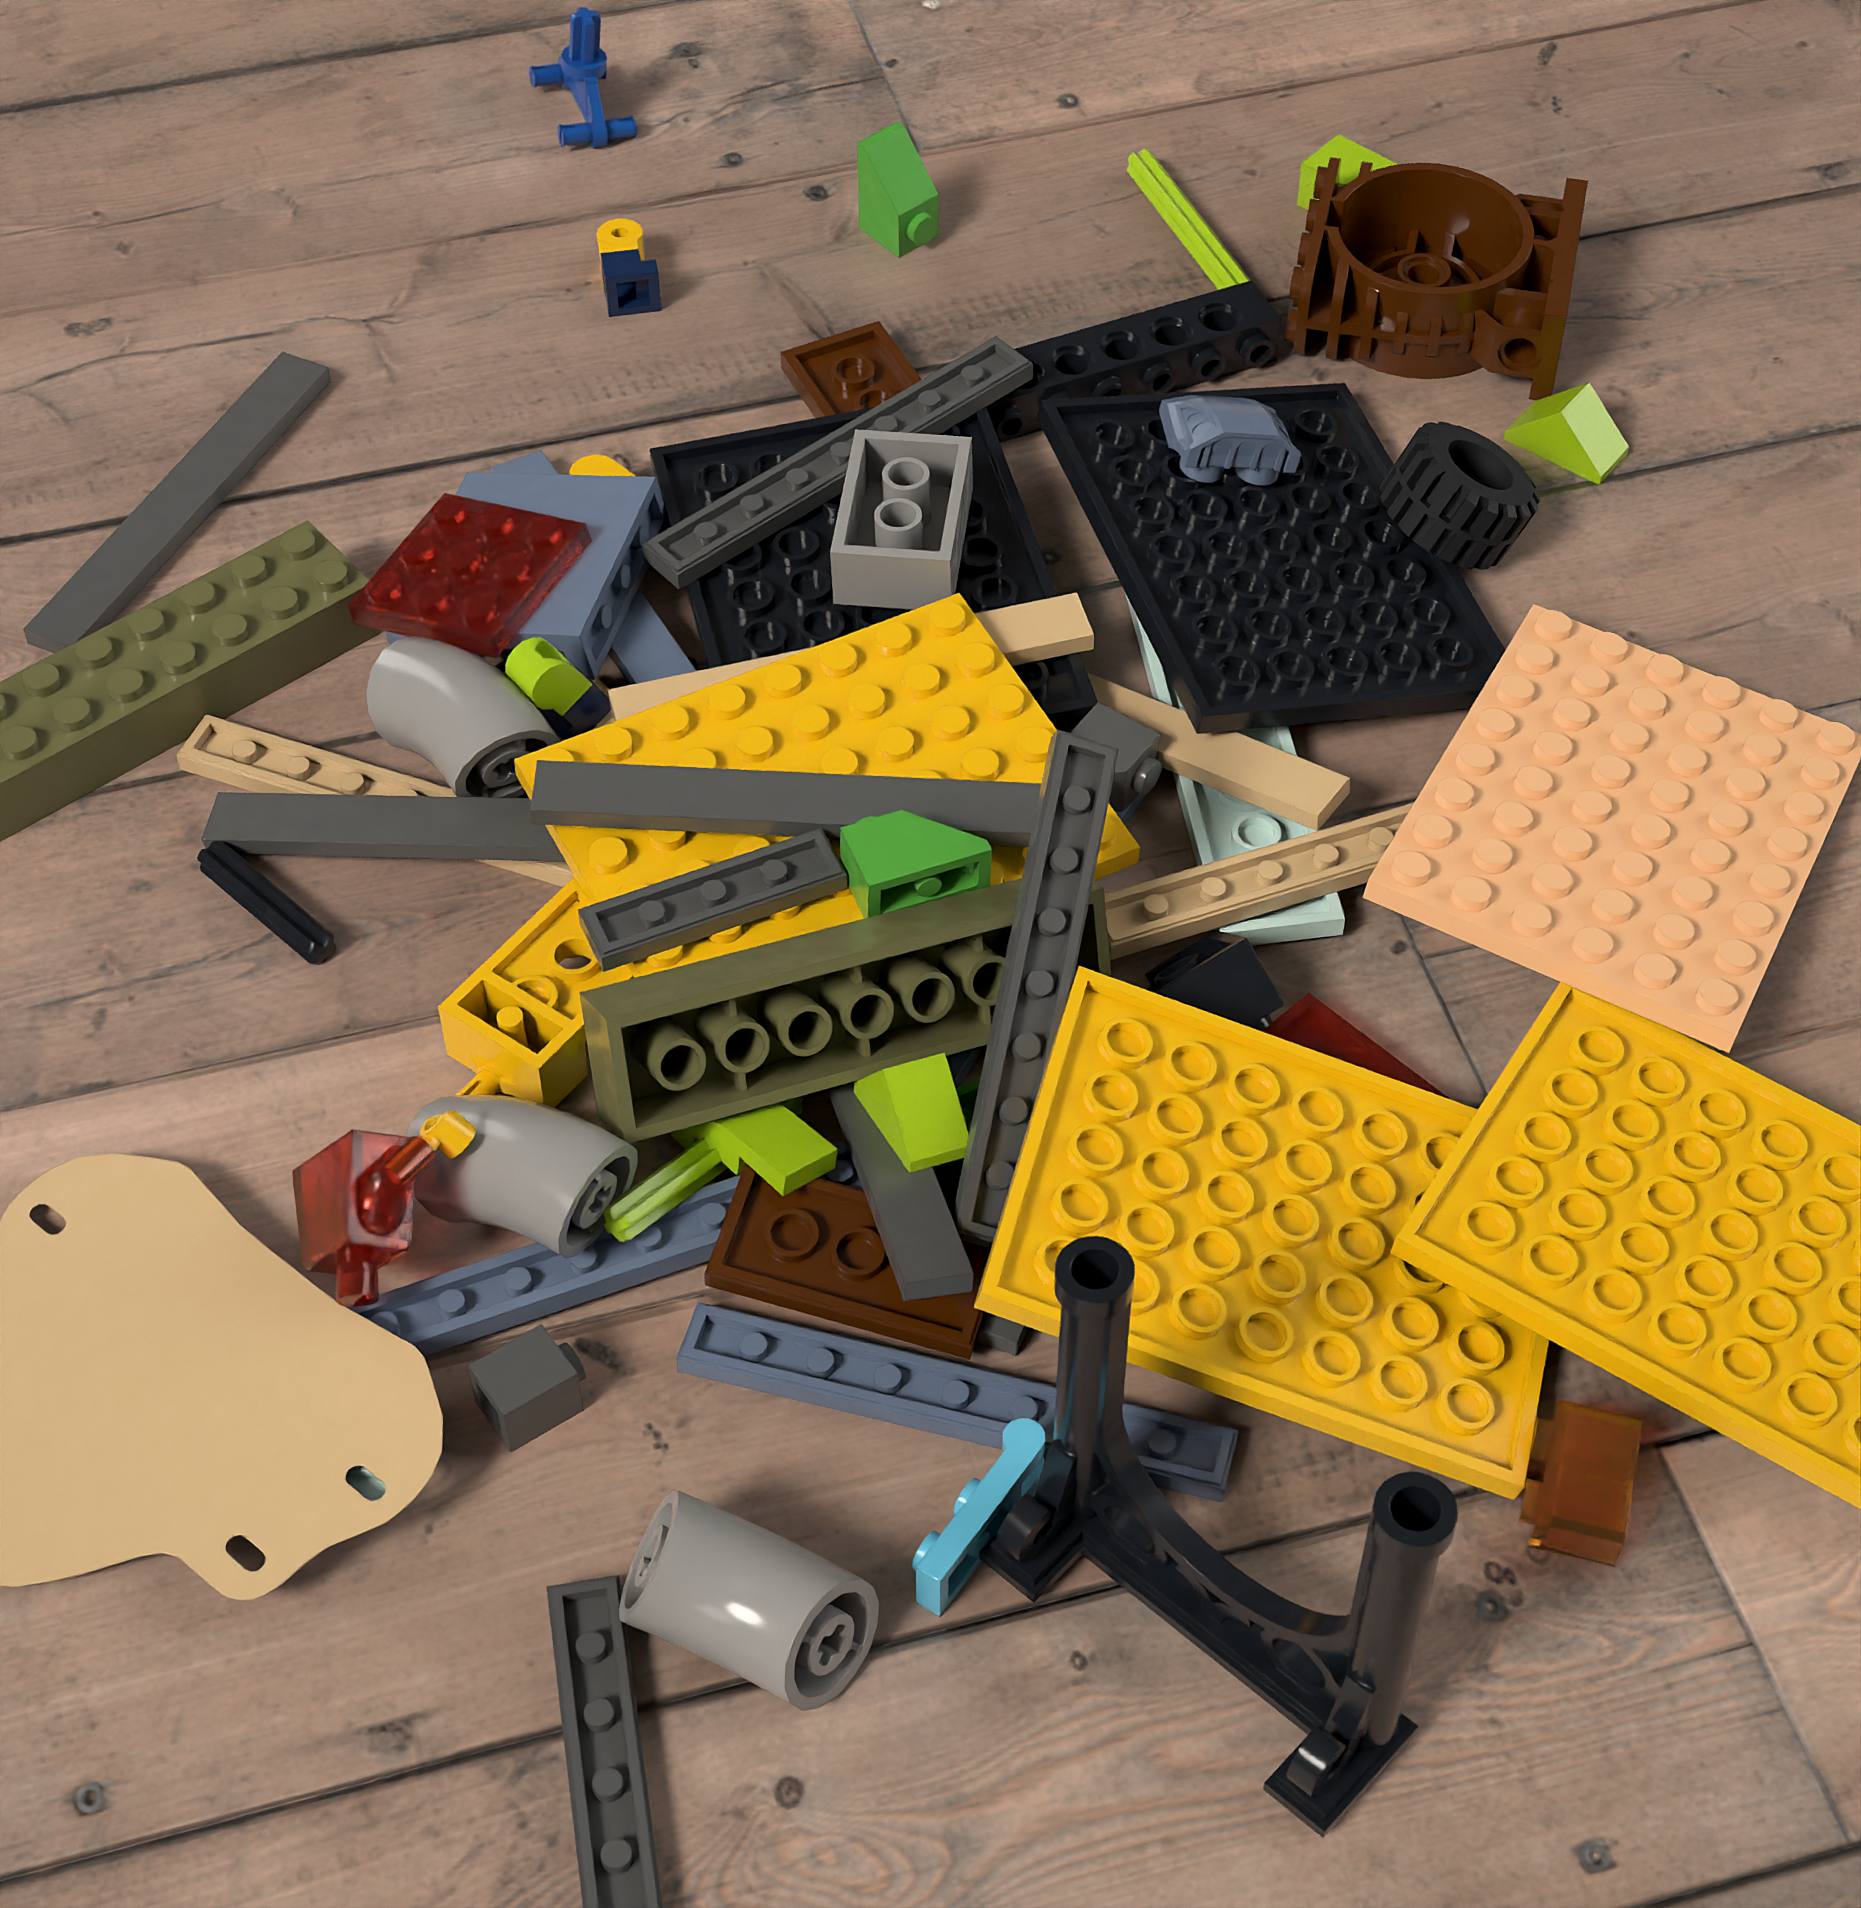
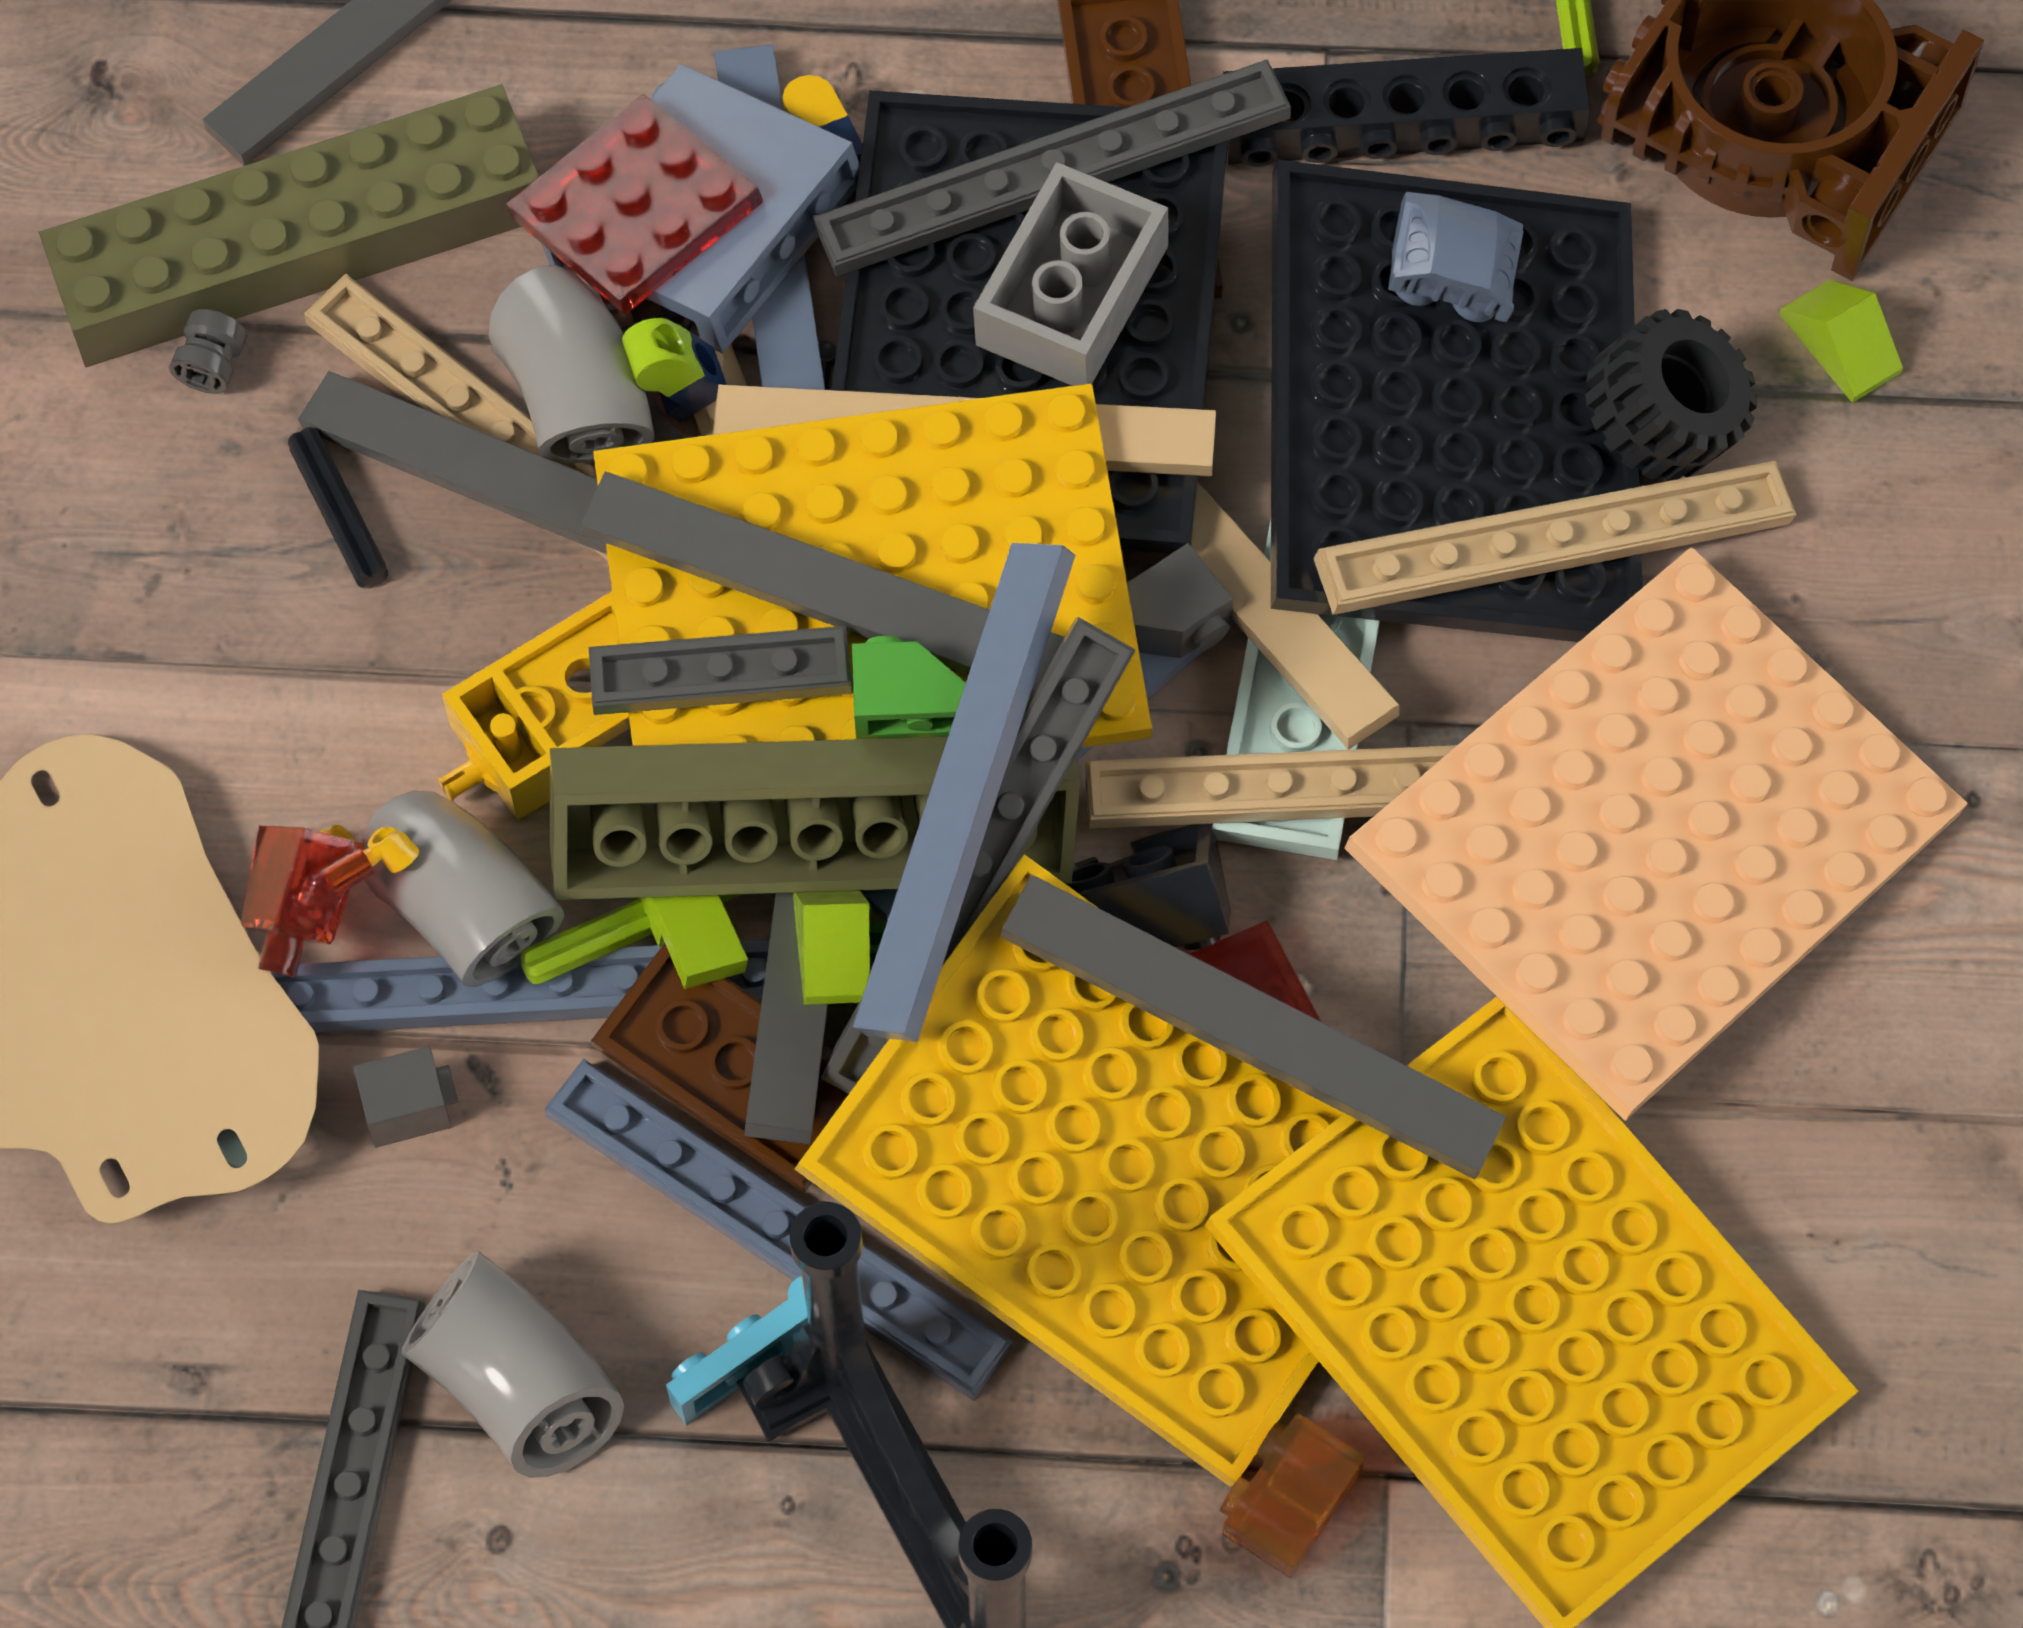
camera: 20 degrees right, 15 degrees up
(92, 805) = (208, 351): none -> dark grey wheel
(1007, 923) = (964, 792): none -> sand blue tile
(1359, 1055) = (1253, 1026): none -> dark grey tile
(1409, 625) = (1553, 537): none -> tan tile

